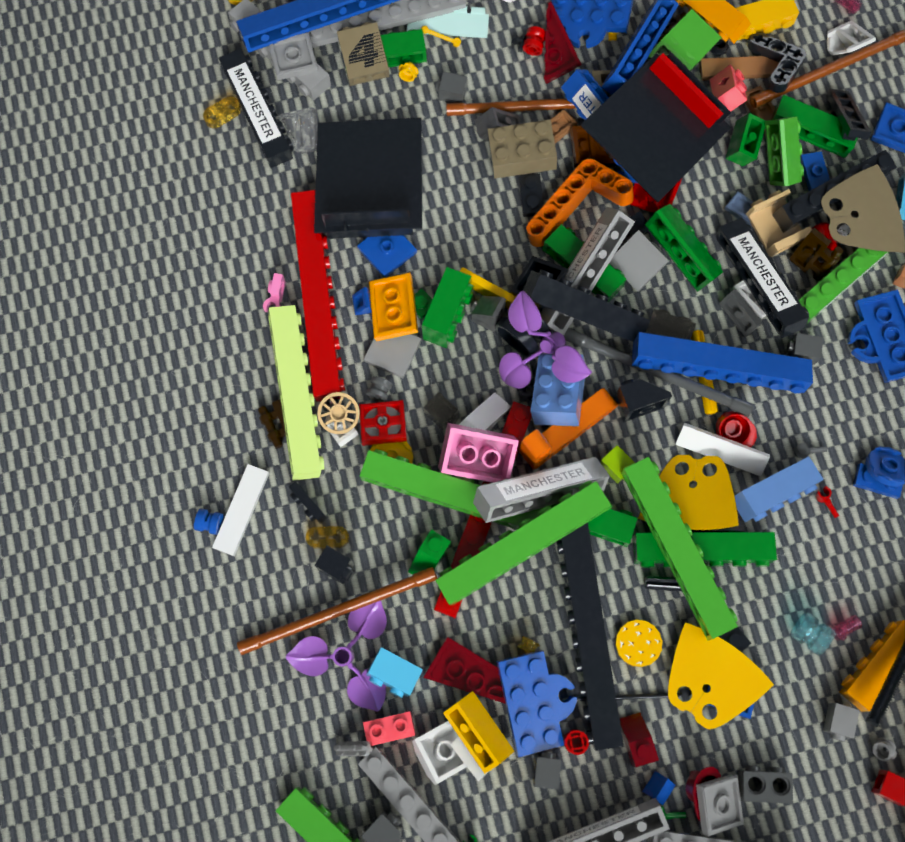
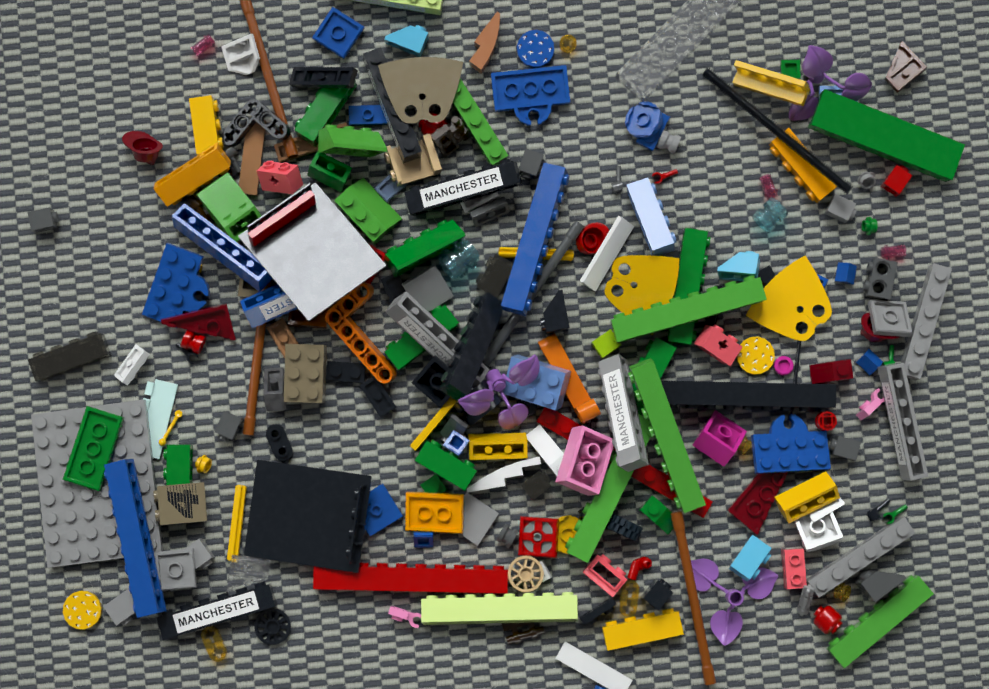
camera: 80 degrees left, 10 degrees up
(247, 166) = (272, 626): none -> black wheel
(292, 558) = (642, 630): none -> yellow brick
(333, 781) = (827, 619): none -> red head
(354, 113) = (237, 521): none -> yellow axle
(355, 517) = (600, 581): none -> coral window
(366, 541) = (638, 565): none -> red arm
(369, 795) = (842, 592): none -> clear yellow bush
(407, 515) = (624, 527): none -> black bush
(443, 369) = (496, 478): none -> white slope
(444, 140) = (279, 442): none -> black plate
(471, 822) = (873, 513): none -> black hand
(473, 310) = (456, 443): none -> slope
(478, 360) = (497, 446): none -> yellow brick
(510, 230) = (378, 396): none -> black plate
(531, 613) = (719, 438): none -> dark pink slope
(603, 793) = (868, 407): none -> bright pink plate
(633, 680) = (783, 365): none -> dark pink tile
(645, 607) = (709, 340): none -> coral brick
(680, 287) = (458, 259): none -> clear light blue piece
(712, 187) = (368, 210): none -> bright green slope
(741, 46) = (231, 152): none -> dark grey hand
(744, 604) = (740, 266): none -> medium azure slope
(762, 741) = (845, 273): none -> blue slope
(803, 798) = (893, 251): none -> clear pink pin
(828, 762) = (869, 226): none -> green plate
(870, 500) = (668, 141): none -> light grey wheel

